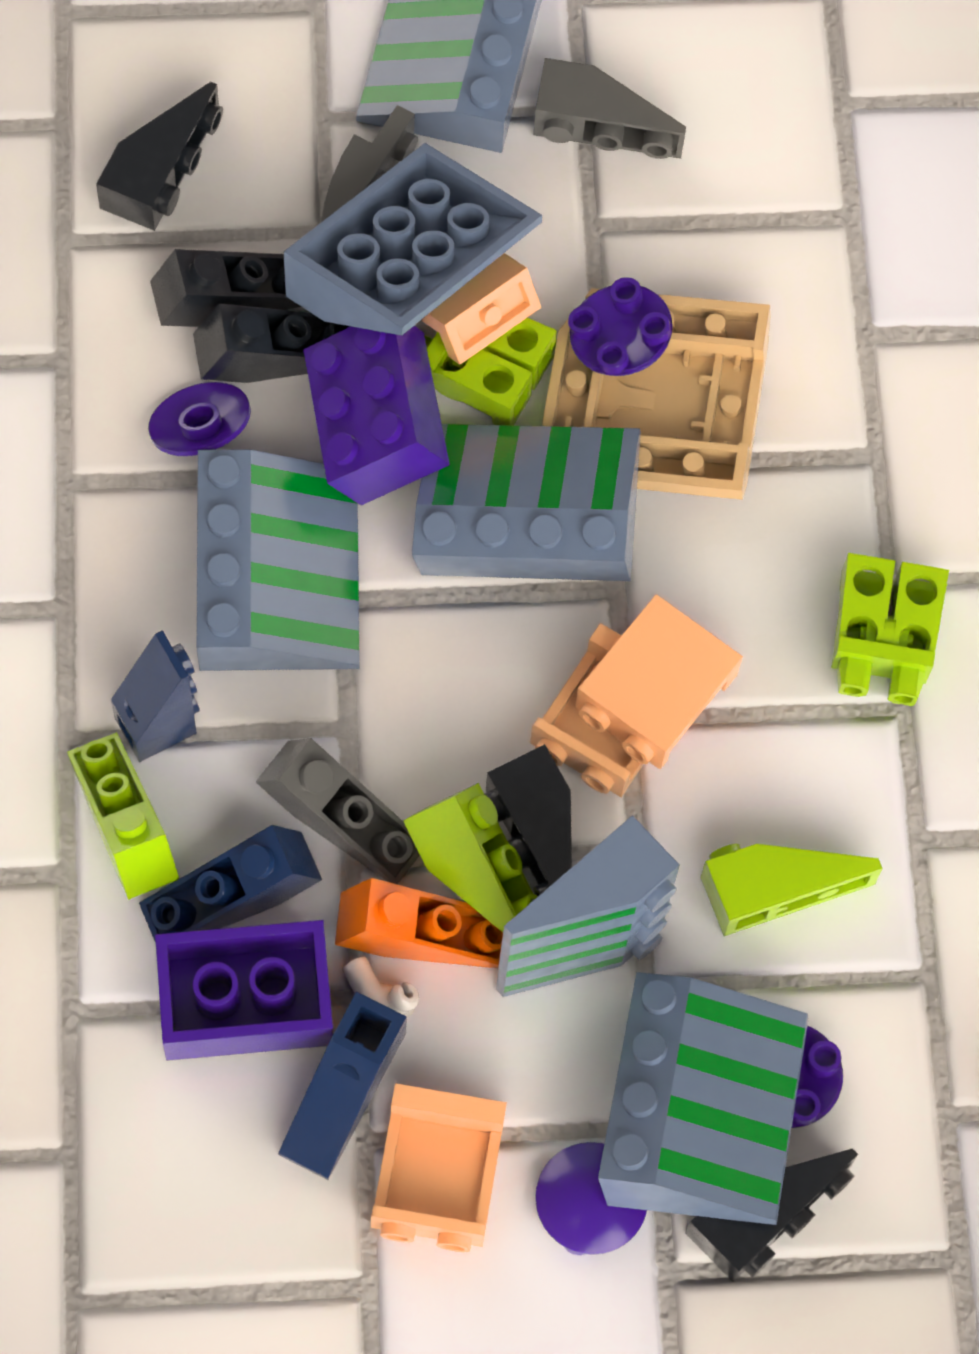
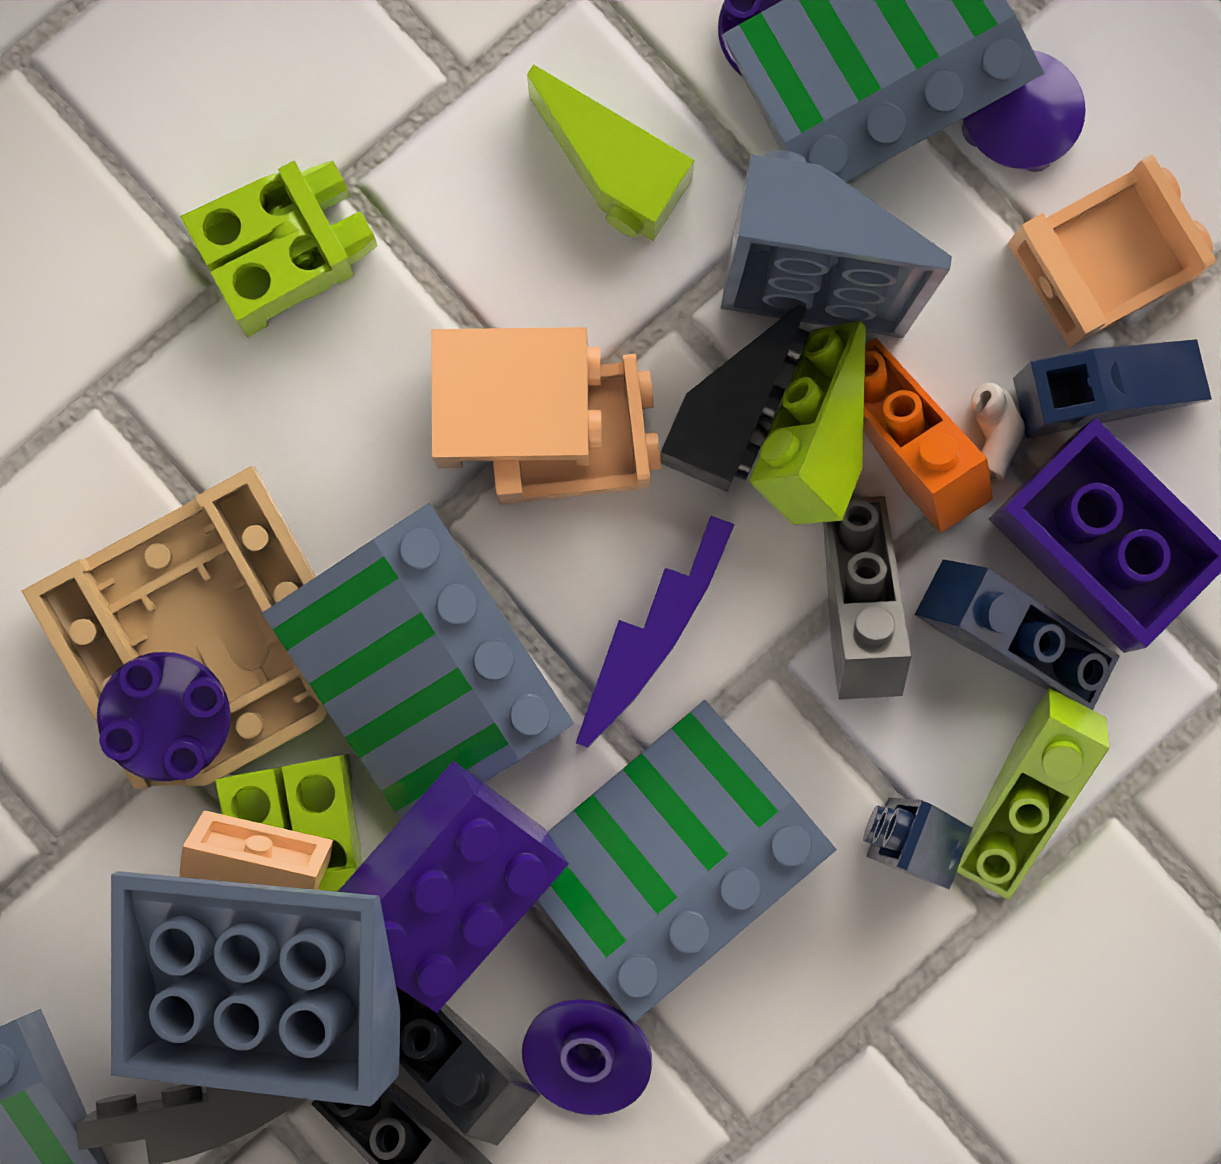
camera: 125 degrees left, 15 degrees up
(426, 646) = (639, 651): none -> dark purple slope

